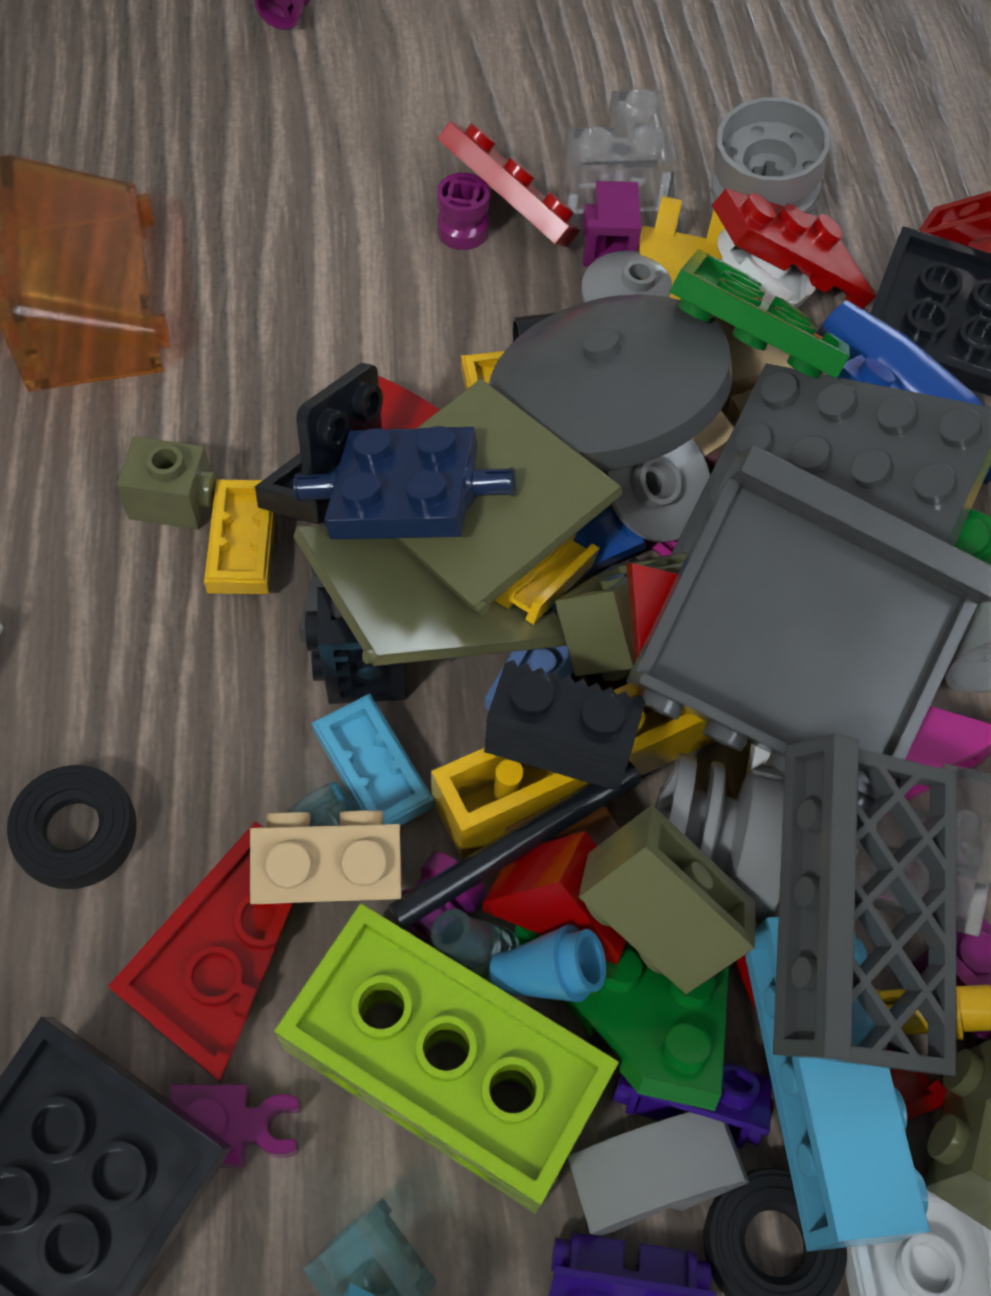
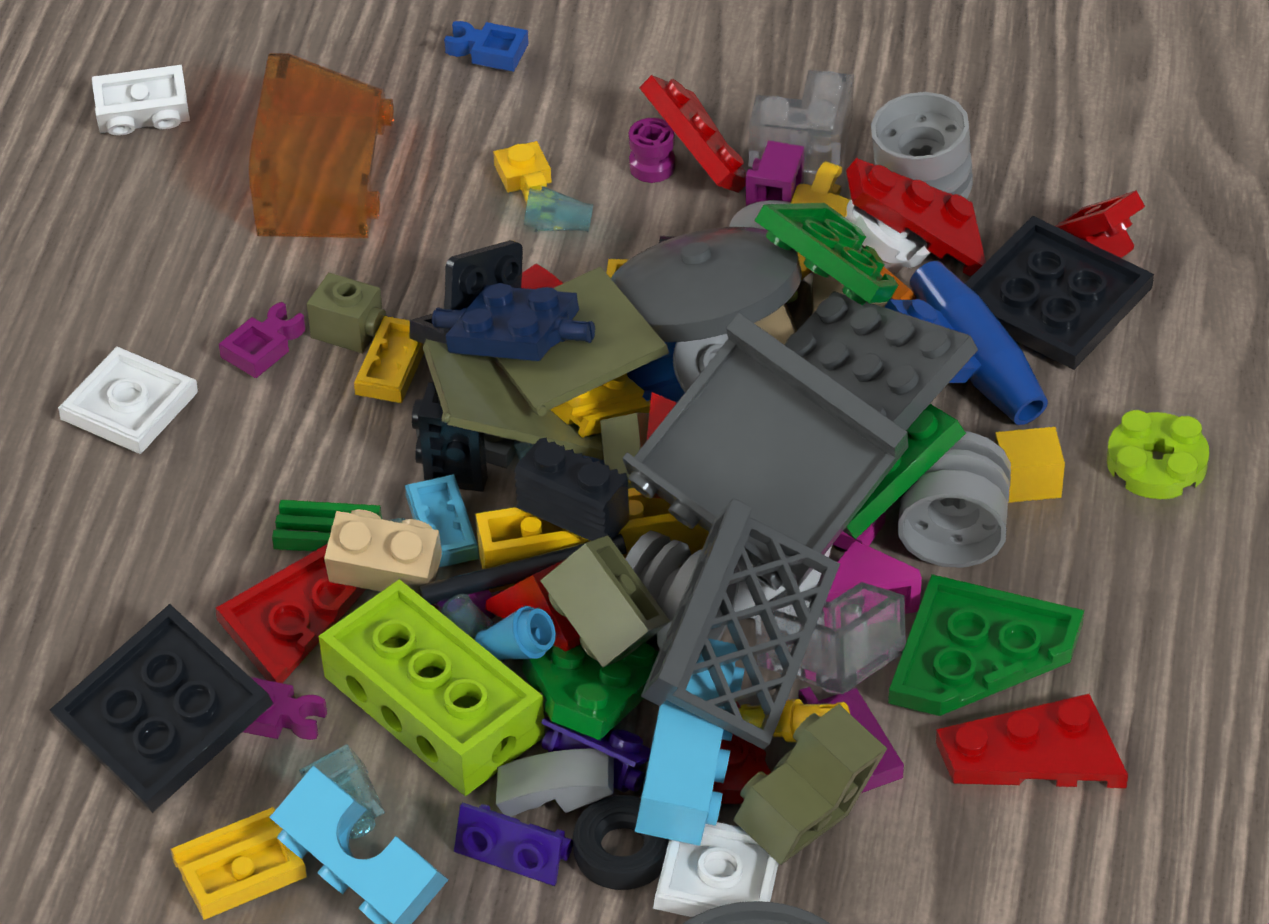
camera: 20 degrees right, 15 degrees down
(50, 793) = (221, 545): black tyre -> none
(69, 546) = (261, 344): none -> magenta plate
(216, 779) = (309, 517): none -> green tile
(242, 113) = (491, 47): none -> blue plate
(325, 256) = (522, 167): none -> yellow plate
(378, 304) = (556, 212): none -> clear light blue cone

